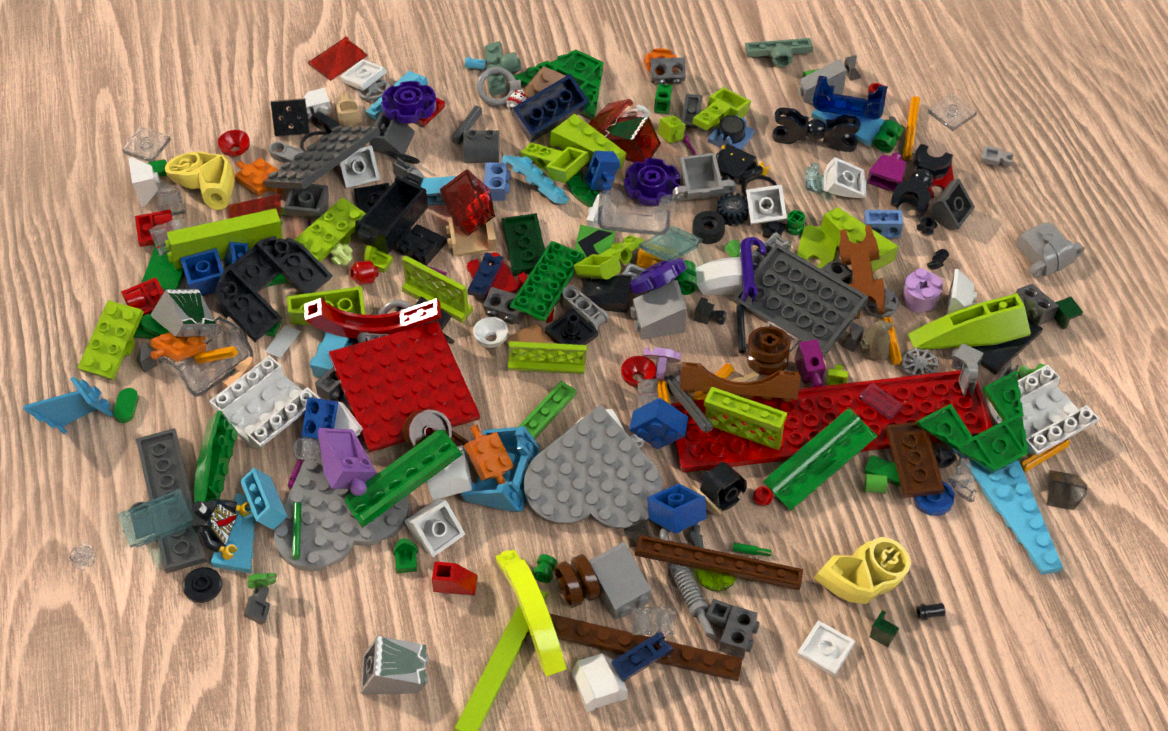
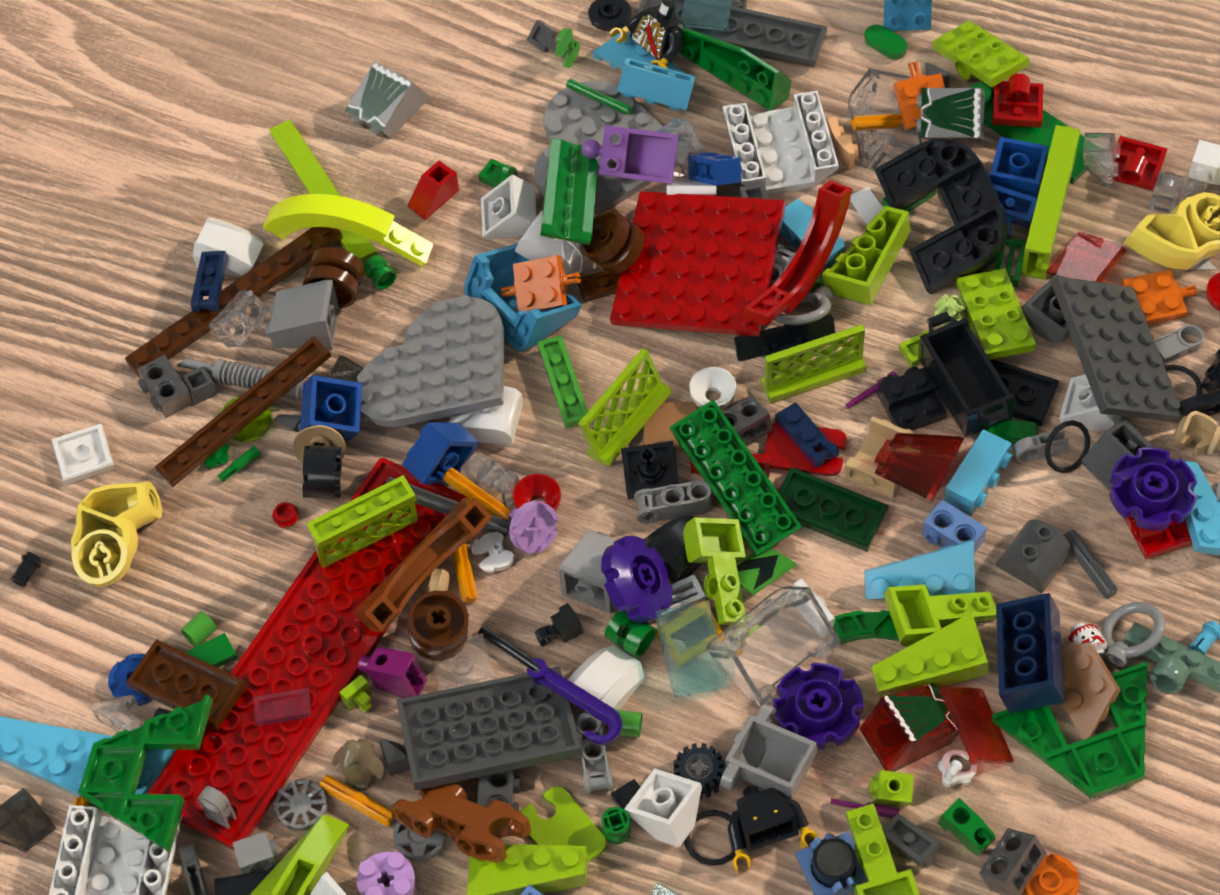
camera: 130 degrees right, 5 degrees up
(364, 272) = (905, 319): red head -> none
(602, 170) = (866, 643): blue brick -> none
(710, 218) = (691, 705): black tyre -> none
(819, 459) = (268, 591): green plate -> none
(883, 631) = (46, 509): dark green panel -> none

